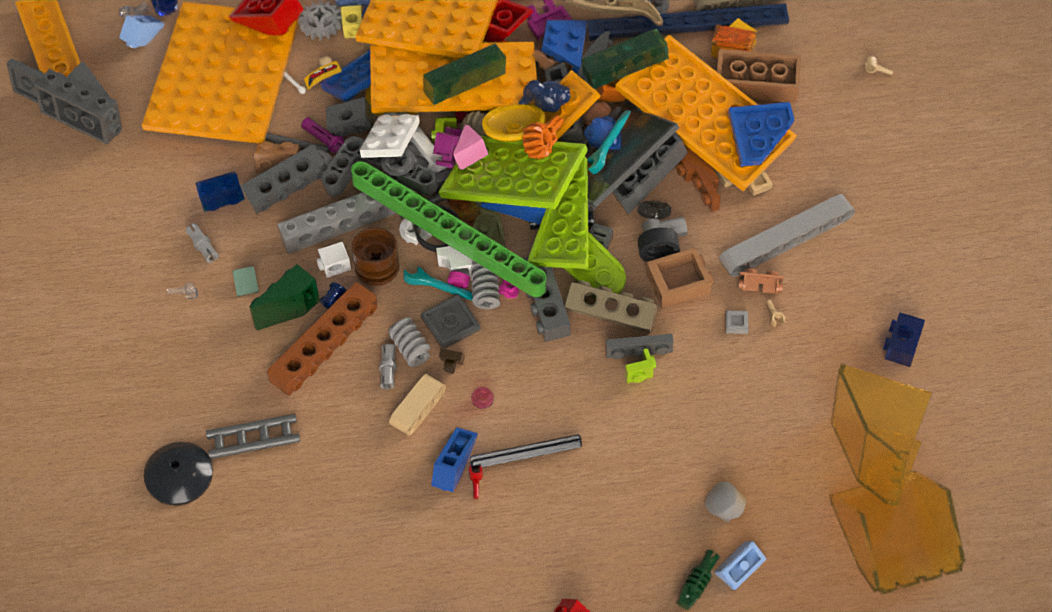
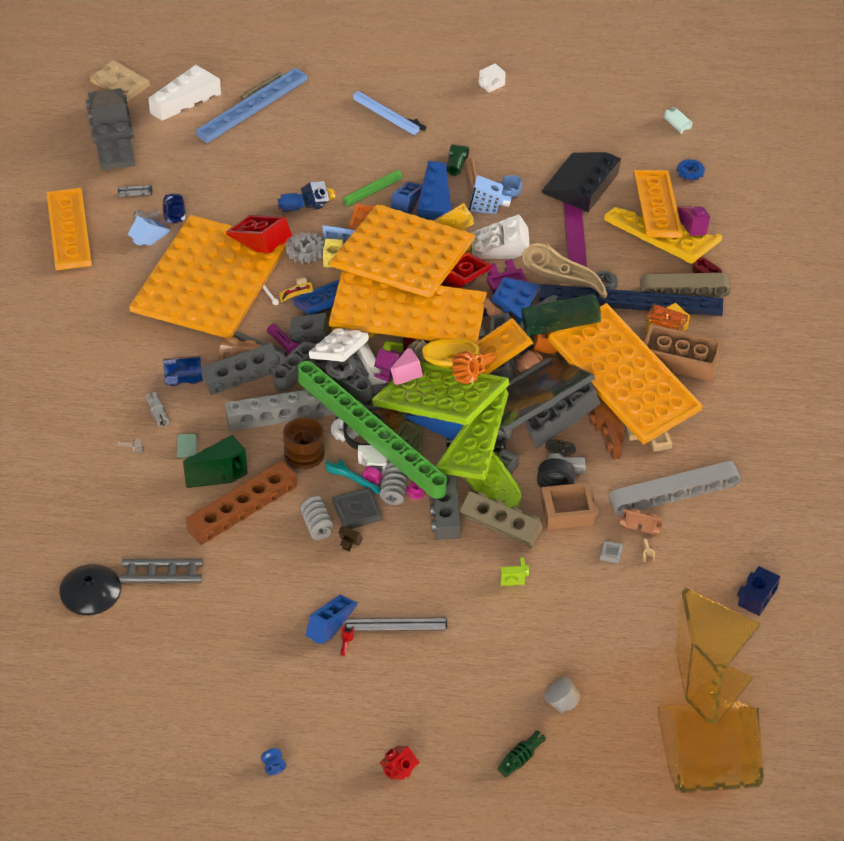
camera: 10 degrees right, 10 degrees down
(72, 100) = (73, 276): dark grey wedge -> none
(333, 260) = (267, 441): white brick -> none
(334, 293) = (262, 465): clear blue bush -> none
(387, 366) = (292, 535): light grey pin -> none
(417, 404) = (310, 569): tan beam -> none
(464, 74) = (416, 305): clear green brick -> none
(482, 392) = (369, 570): clear pink plate -> none
(546, 95) = (485, 334): dark blue hair -> none
(597, 160) = (518, 394): teal piece -> none
(599, 130) = (529, 375): blue piece -> none
(634, 346) = (511, 555): dark grey plate -> none
(740, 564) = (563, 749): light blue slope -> none
(759, 130) = (668, 394): blue plate -> none
(871, 66) = (789, 362): tan hand -> none

